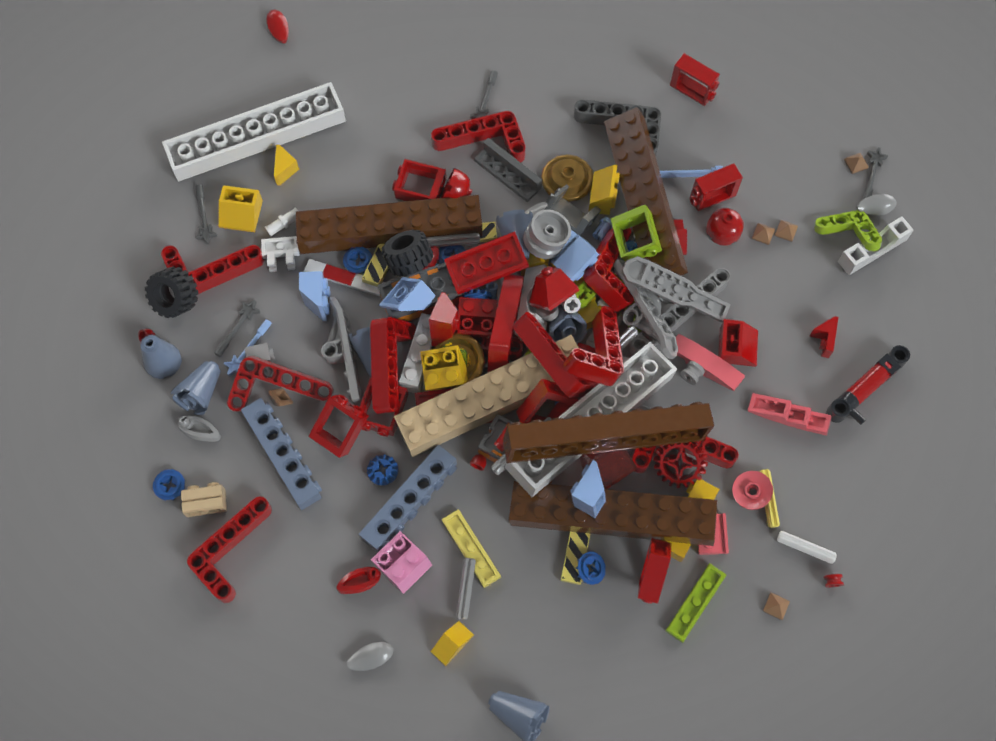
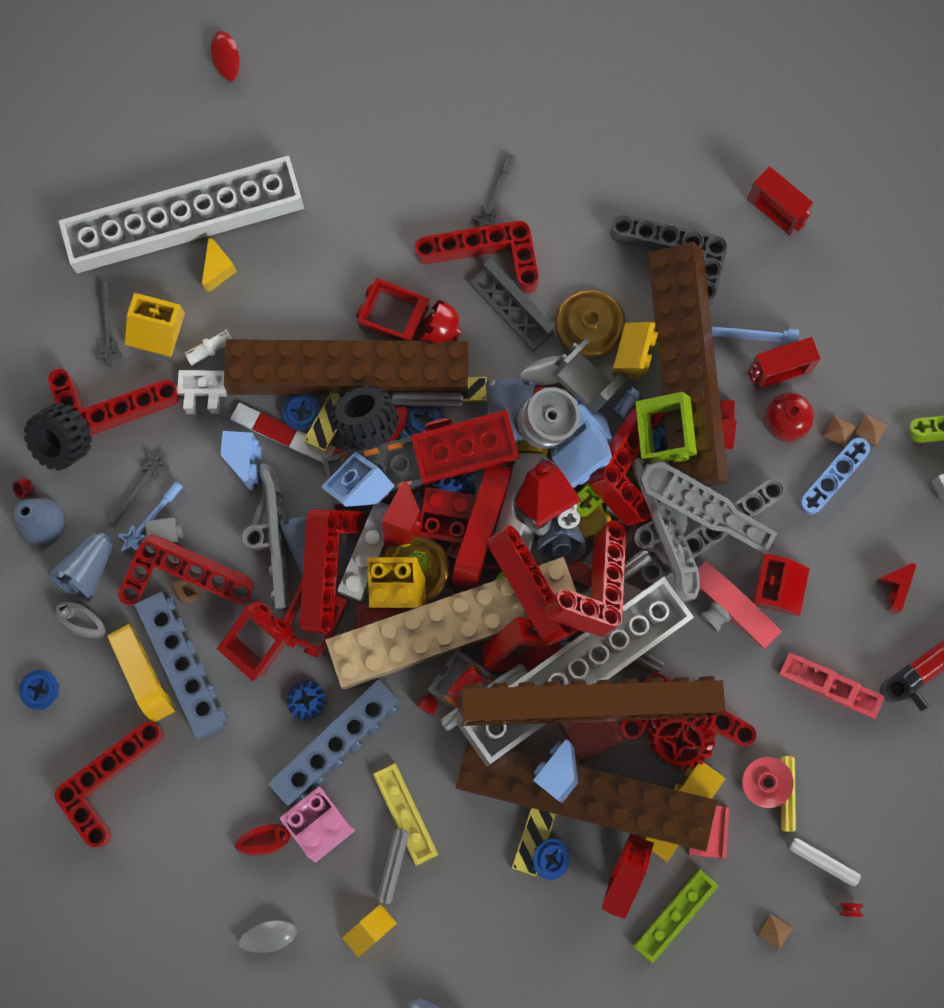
camera: 10 degrees right, 10 degrees up
(203, 500) = (80, 716): tan brick -> none
(250, 462) = (140, 674): none -> yellow beam
(767, 265) = (836, 477): none -> light blue beam

